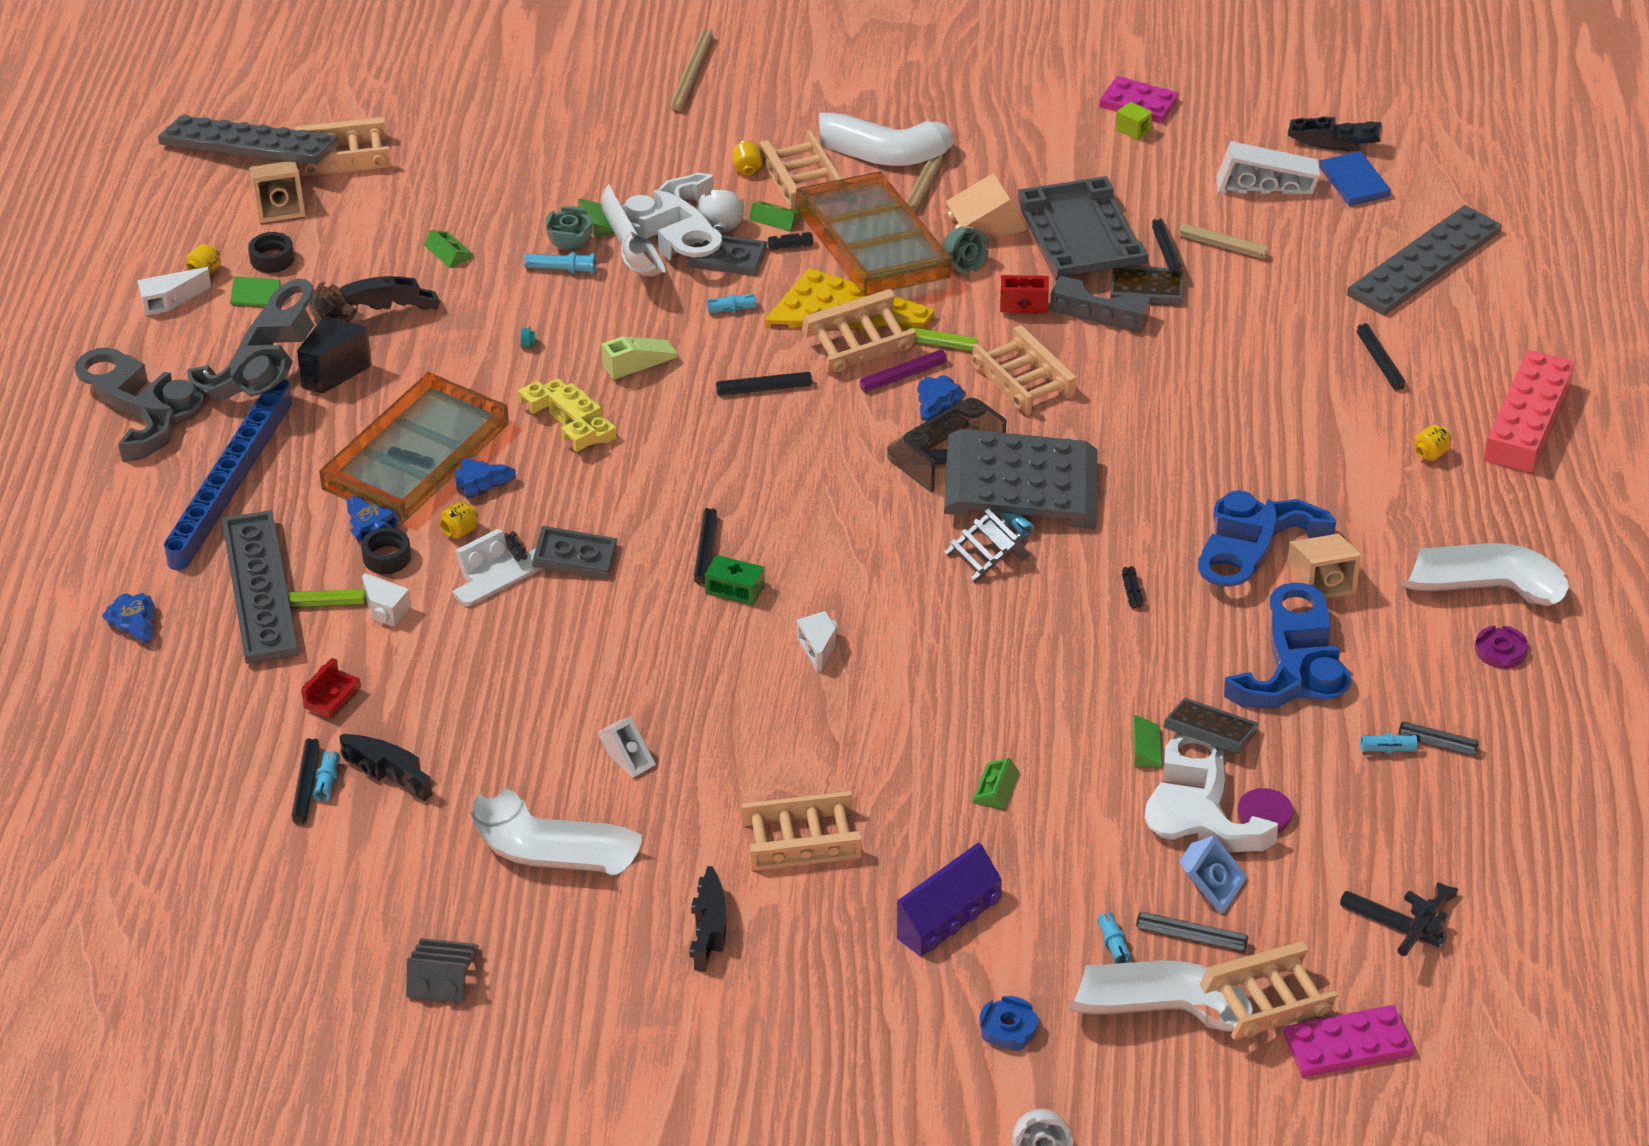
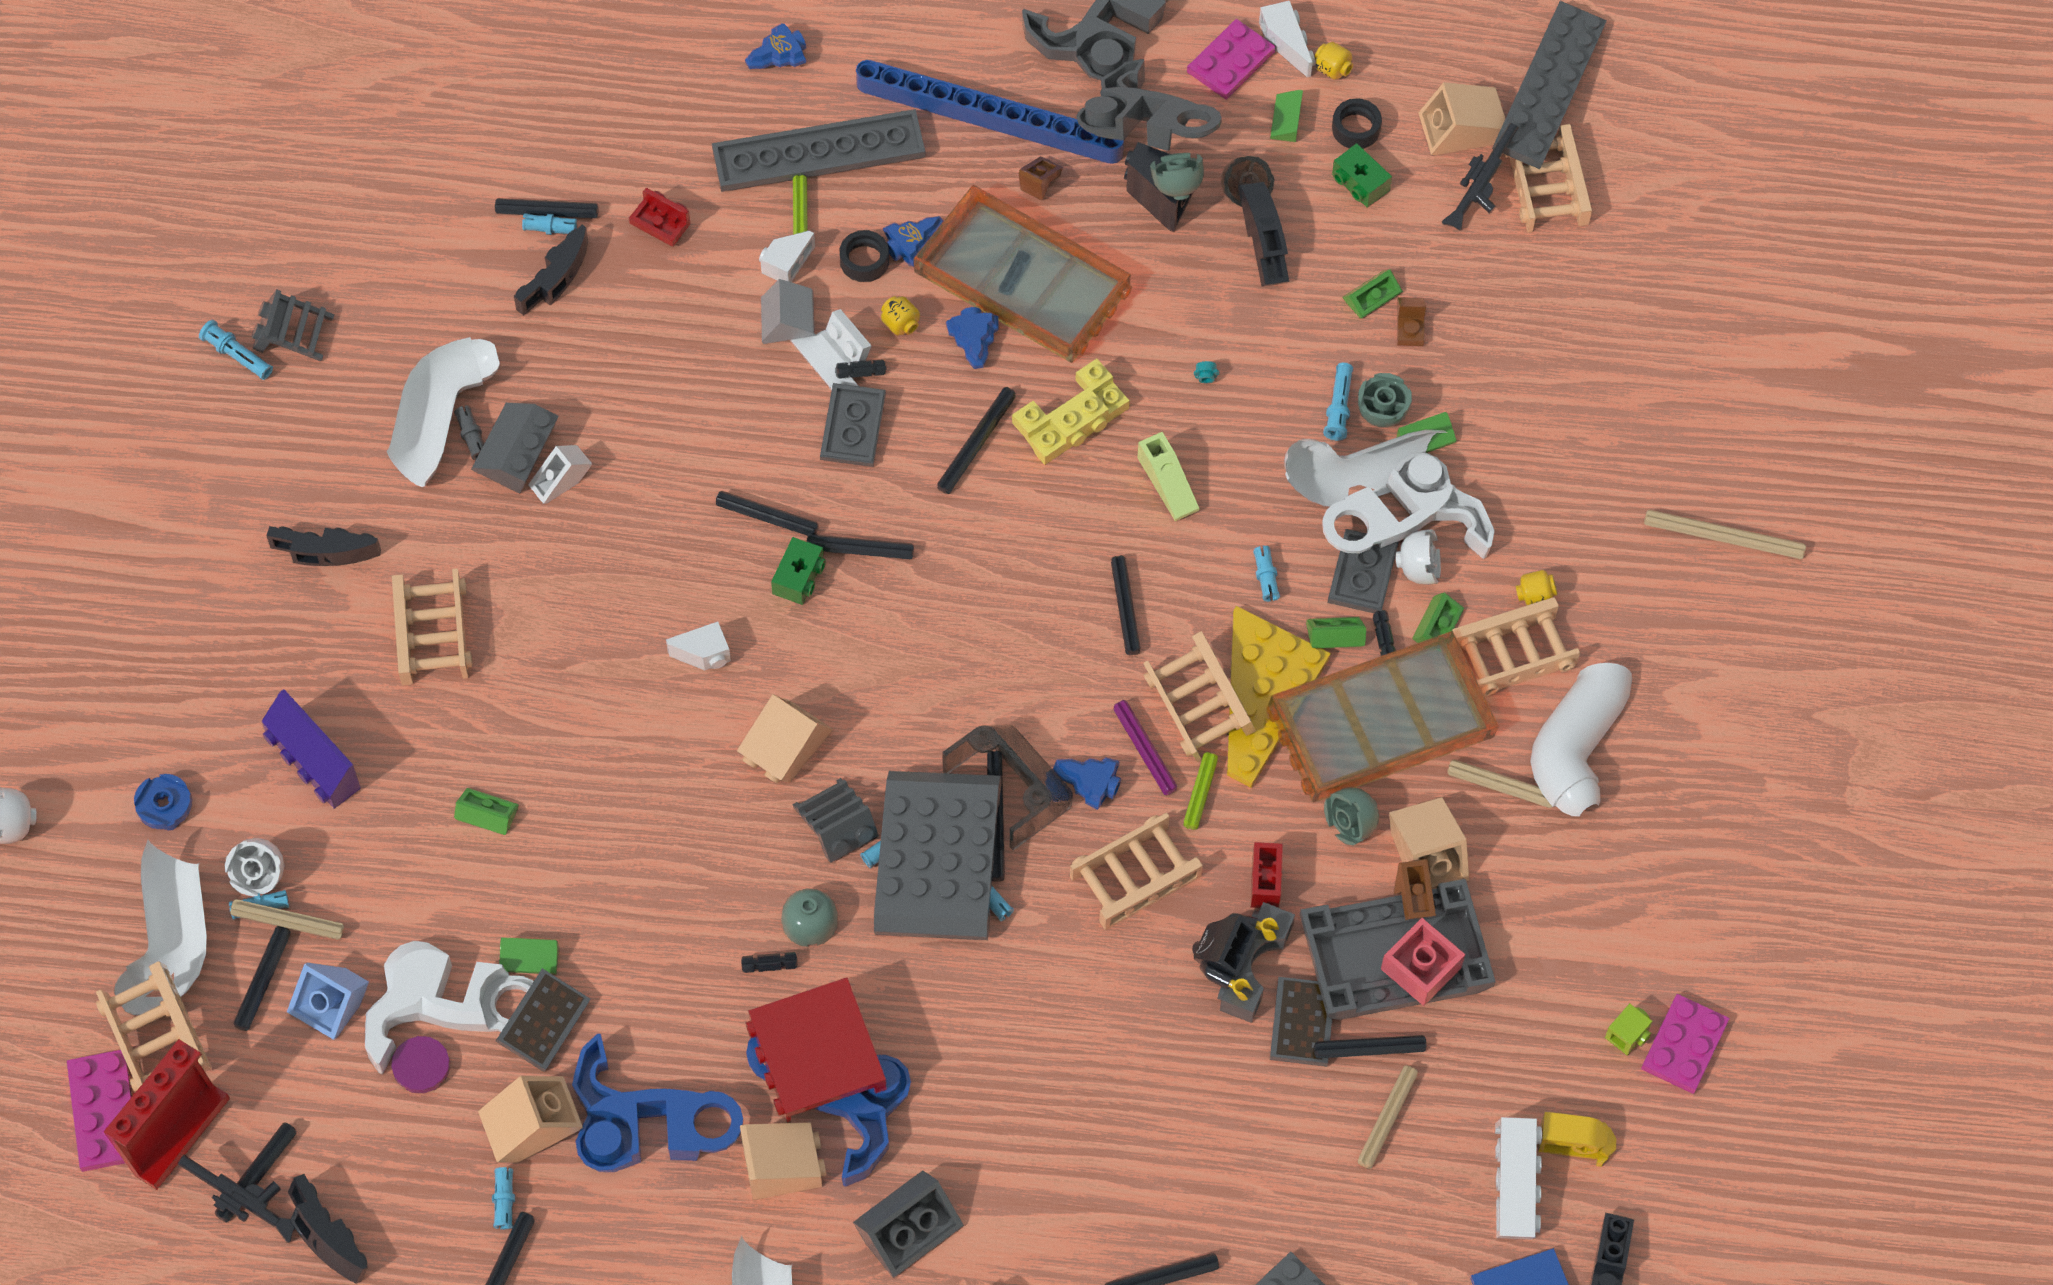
camera: 90 degrees right, 20 degrees up
(186, 328) = (1231, 59): none -> dark pink plate
(313, 435) = (1037, 175): none -> dark orange slope
(328, 247) = (1361, 175): none -> green brick
(343, 171) = (1481, 173): none -> black piece
(347, 309) = (1178, 174): none -> sand green cylinder
(450, 600) = (787, 312): none -> light grey slope
(458, 1018) = (228, 341): none -> medium azure pin
(475, 226) = (1410, 321): none -> dark orange slope
(585, 814) = (470, 430): none -> dark grey pin
(593, 475) = (976, 440): none -> black axle
(596, 774) = (515, 444): none -> dark grey slope
(669, 607) = (766, 513): none -> black axle
(787, 264) = (1336, 632): none -> bright green slope
(913, 577) = (783, 739): none -> light nougat slope
(1030, 209) = (1416, 890): none -> dark orange slope
(1081, 930) = (254, 866): none -> white cylinder
(1086, 561) = (809, 917): none -> sand green cylinder
(1099, 202) = (1422, 961): none -> coral brick
(1099, 307) = (1226, 947): none -> black torso
(1132, 910) = (287, 919): none -> tan axle
(1222, 139) = (1577, 1137): none -> yellow piece
(1229, 529) = (815, 1048): none -> red panel
(1317, 720) = (529, 1117): none -> light nougat slope
(1362, 492) = (908, 1223): none -> dark grey slope
(1364, 950) = (166, 1115): none -> red panel
(1449, 857) = (327, 1239): none -> black slope

